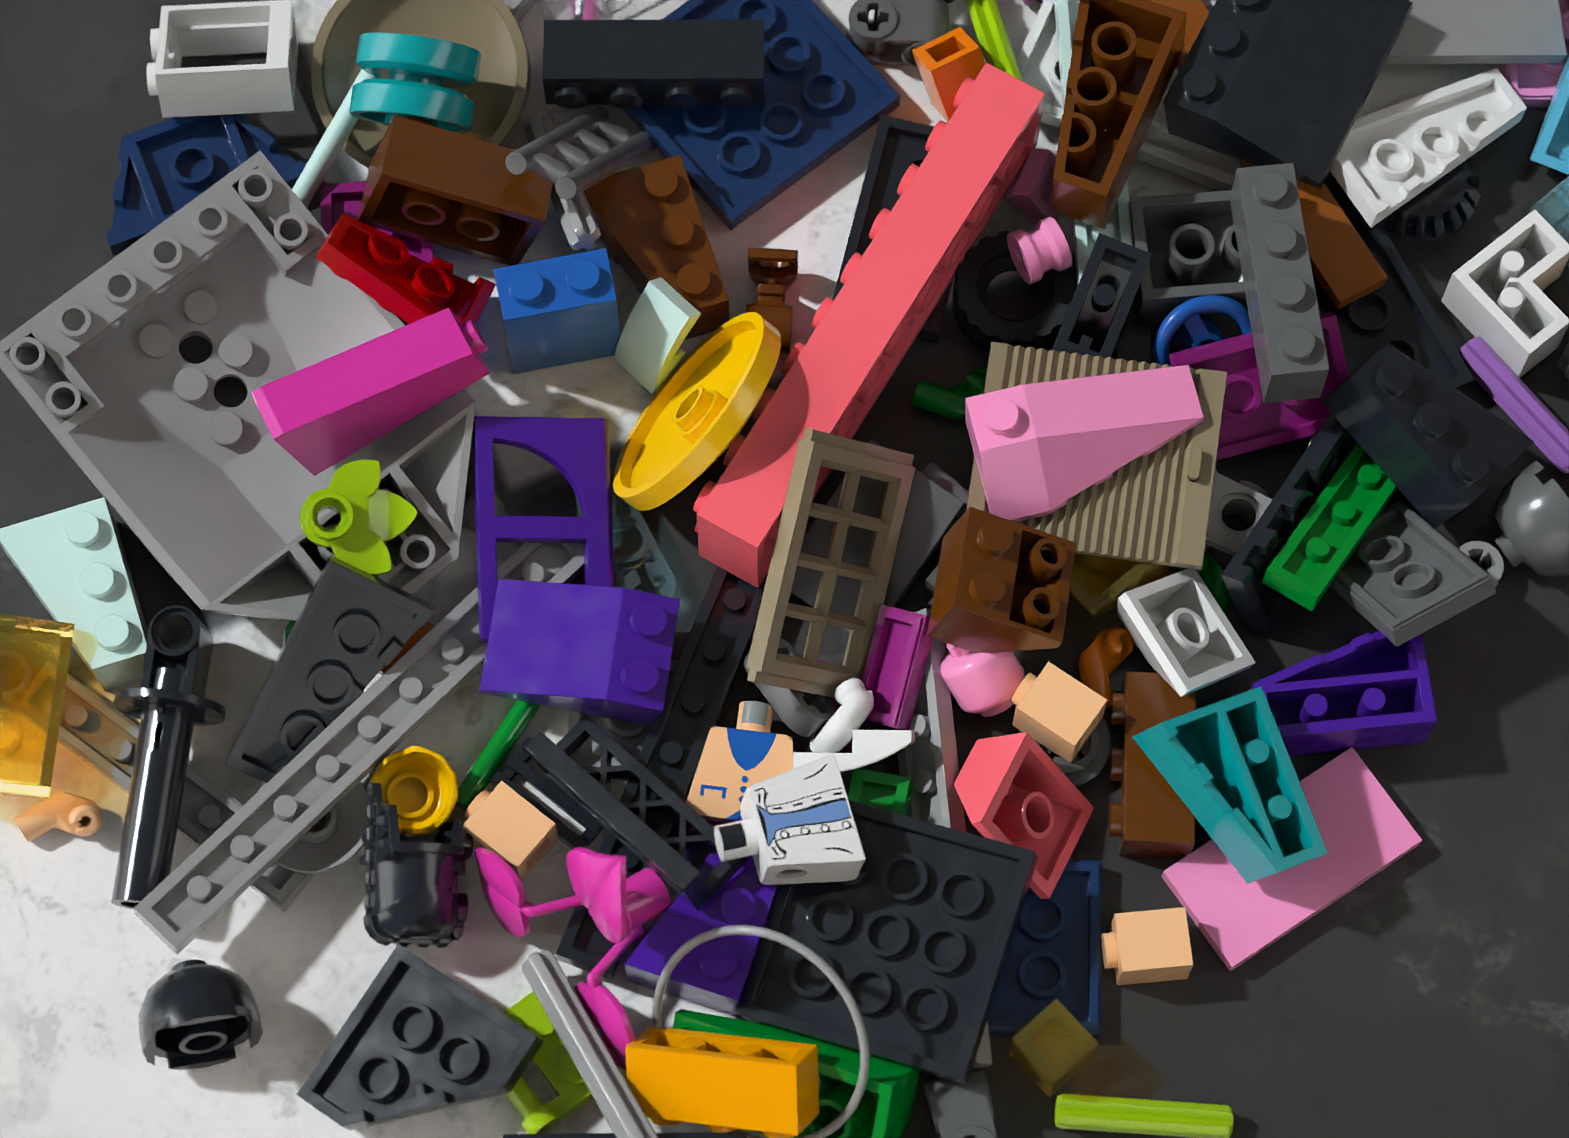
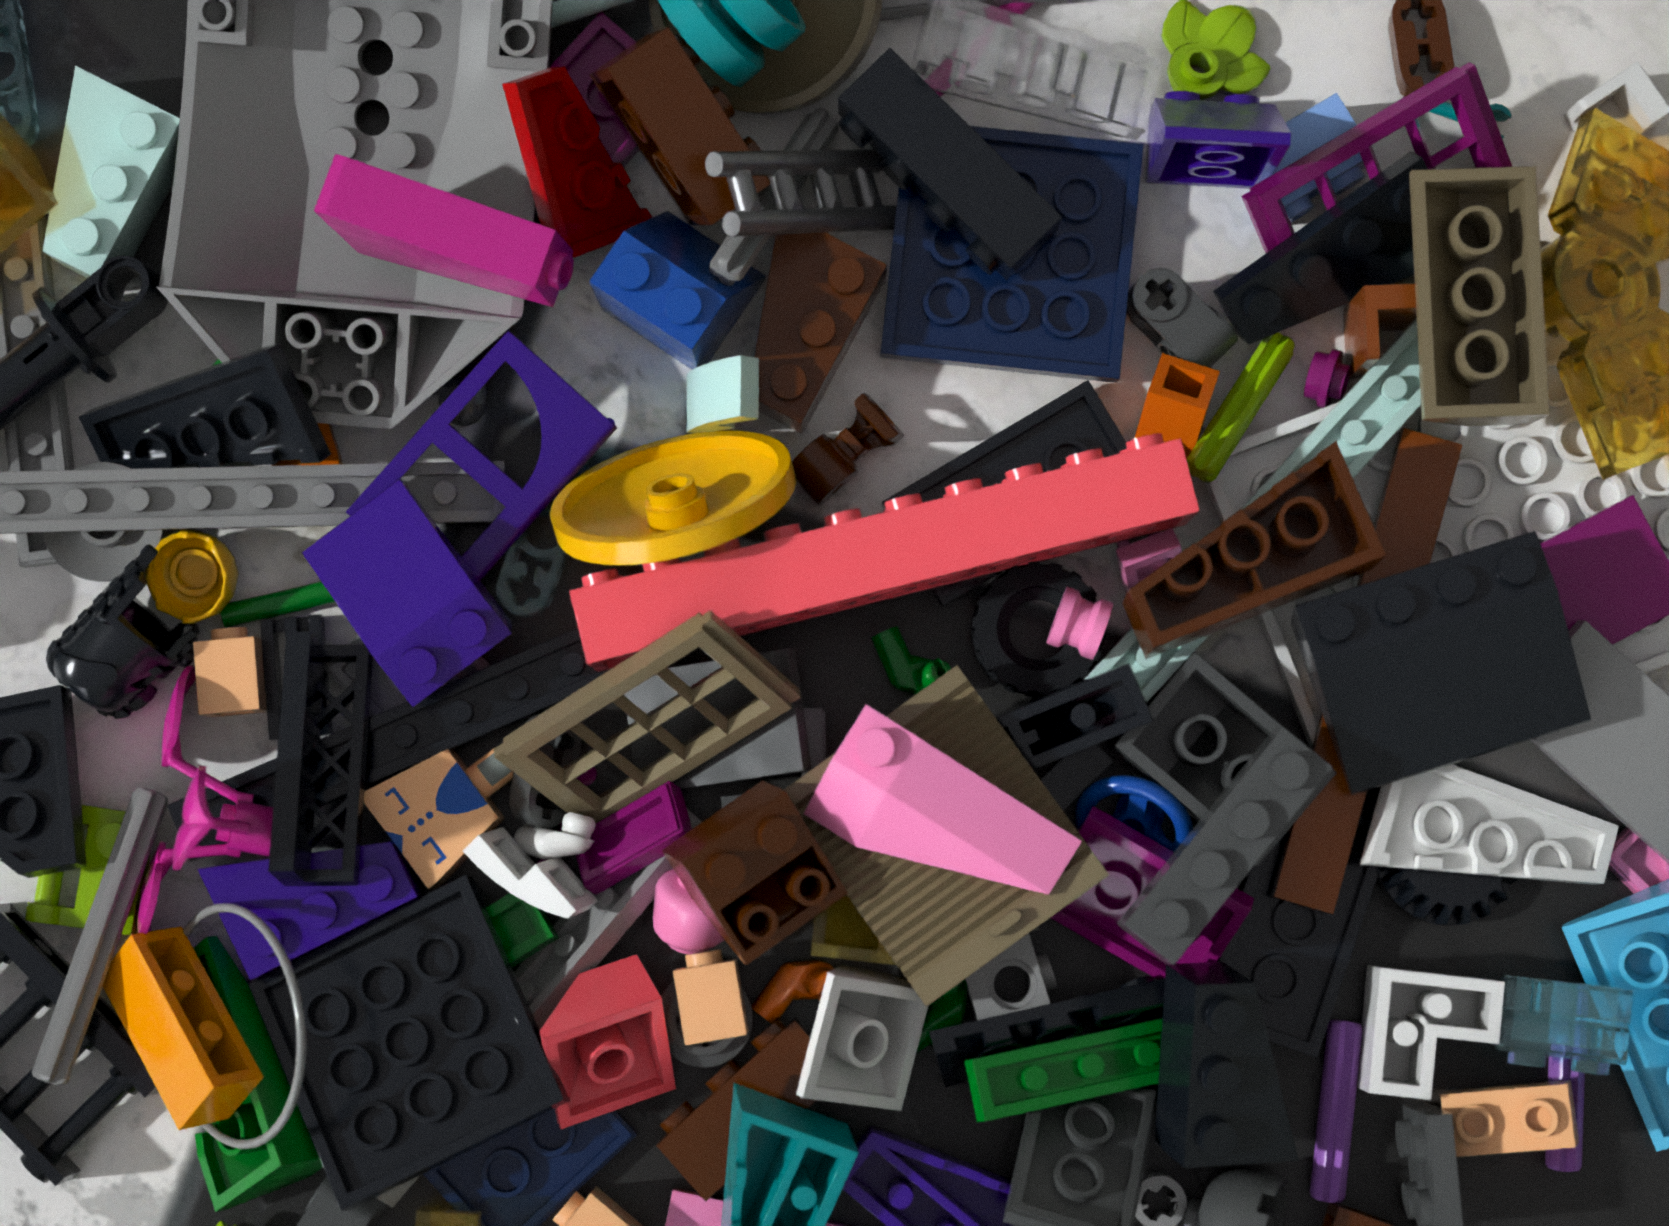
camera: 50 degrees right, 15 degrees up
(365, 515) = (339, 334): lime plate -> none
(796, 827) = (408, 901): white torso -> none

